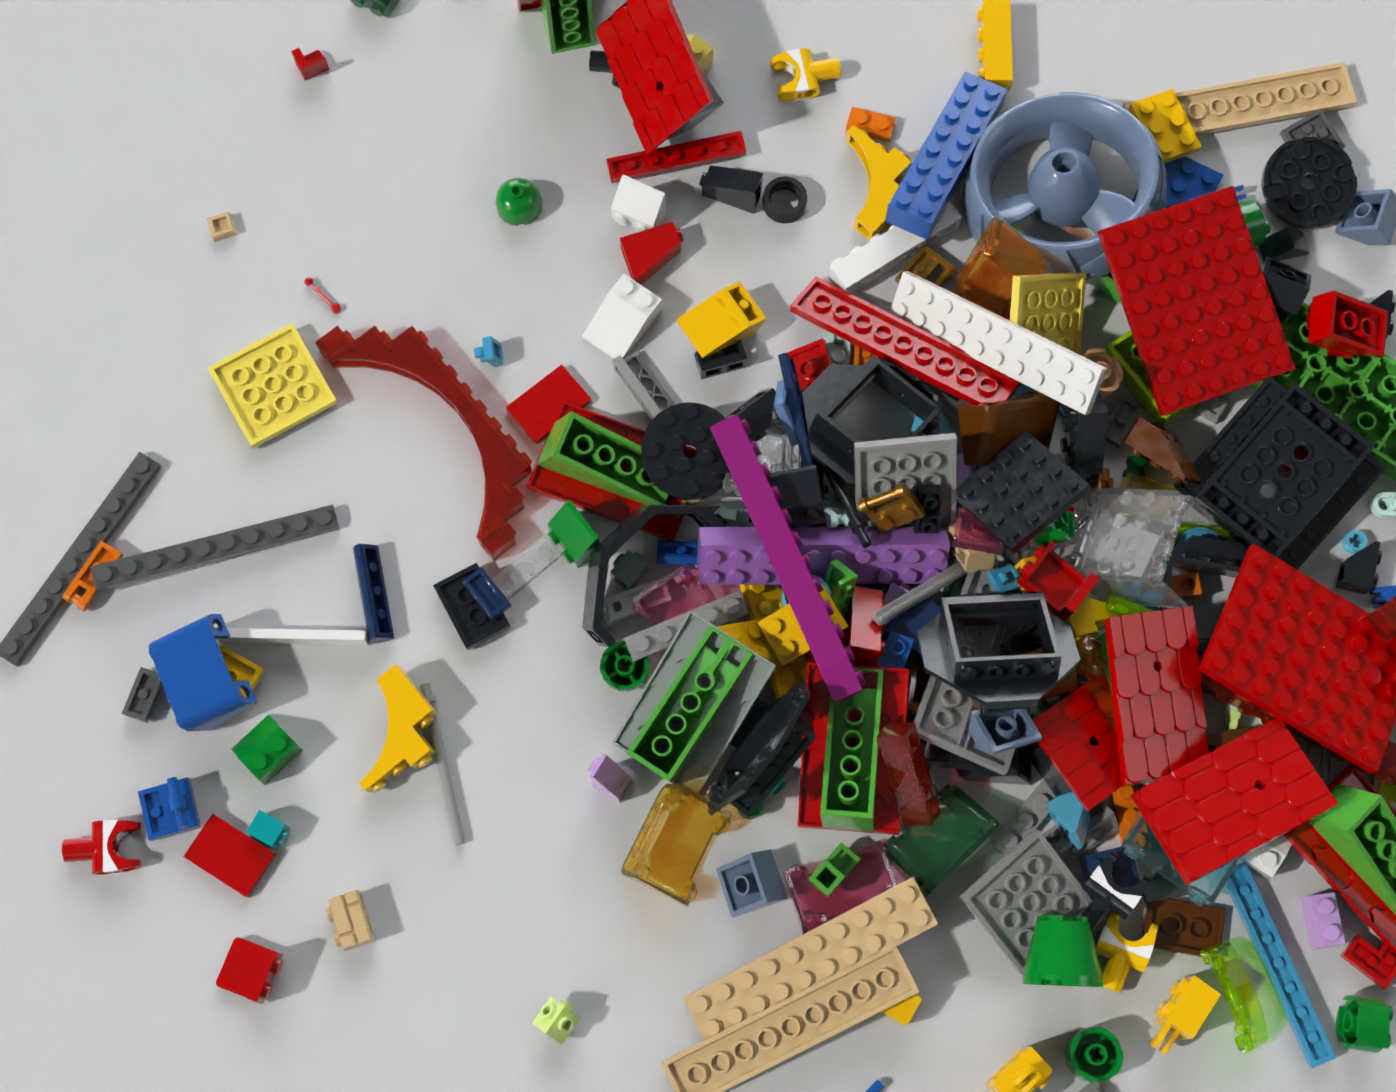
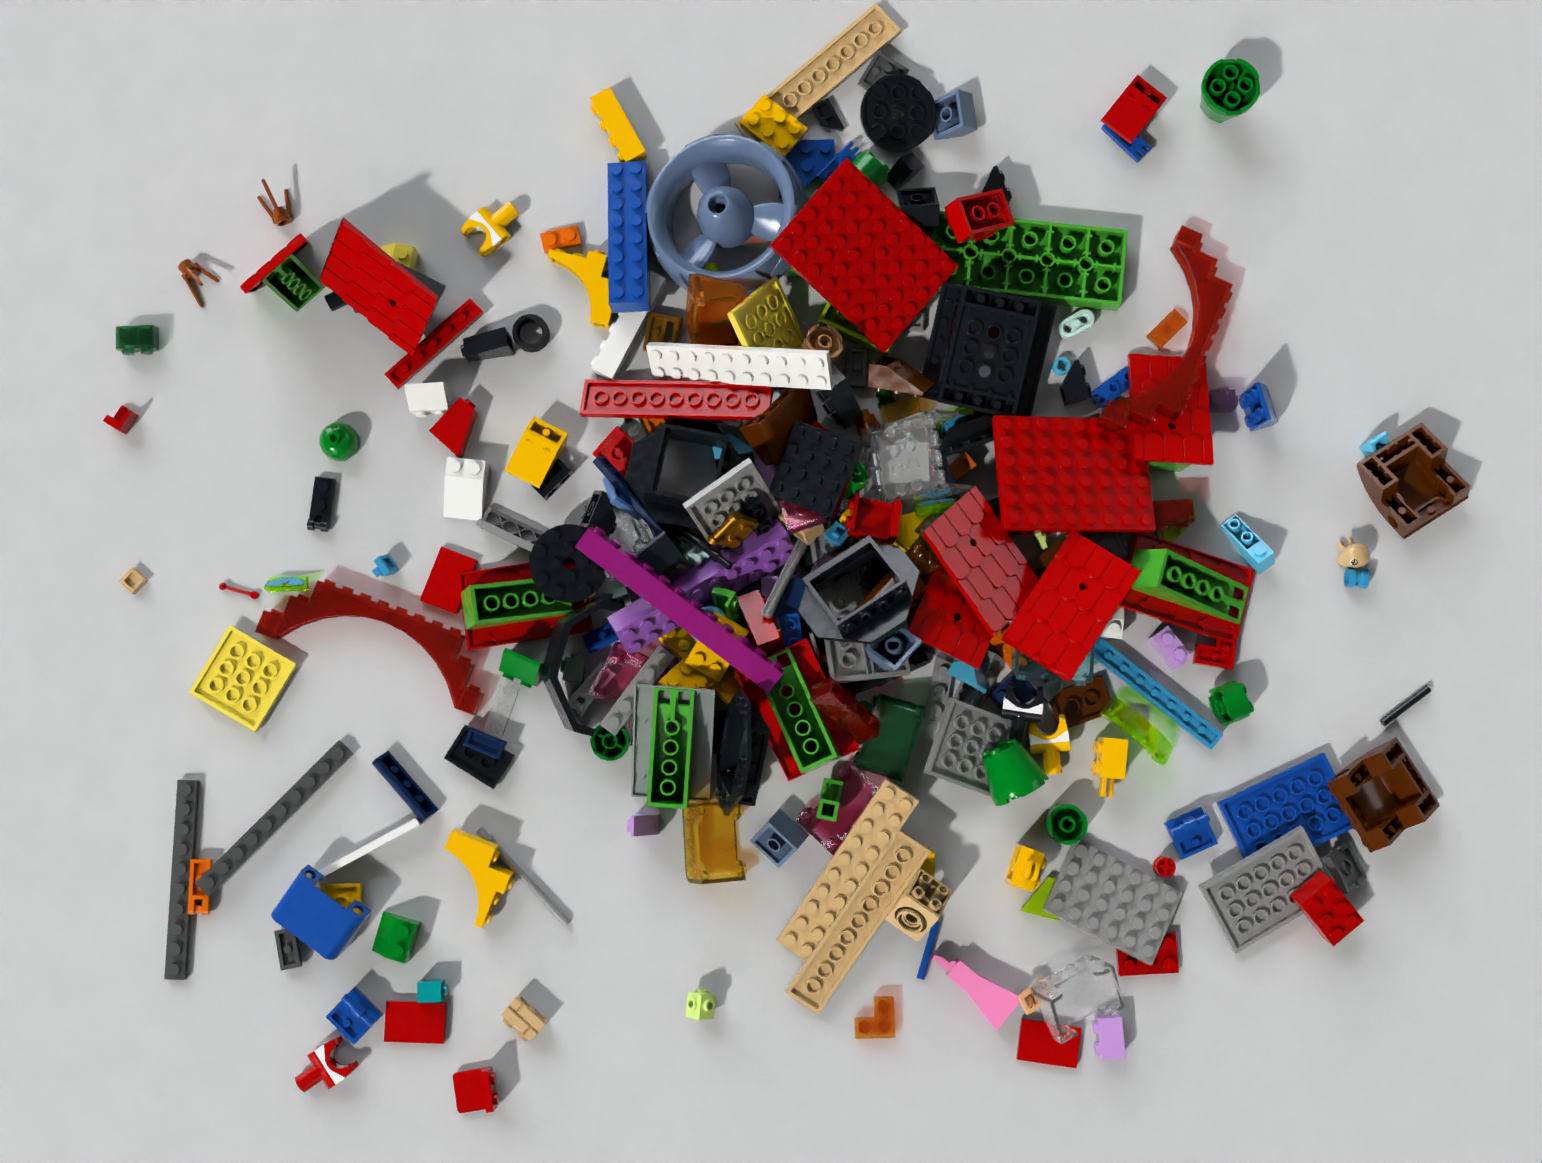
camera: 25 degrees left, 10 degrees up
(376, 316) = (287, 584): none -> clear neon green slope
(462, 254) = (321, 503): none -> black plate
(872, 1047) = (919, 905): none -> tan brick
(1228, 148) = (827, 116): none -> black tile

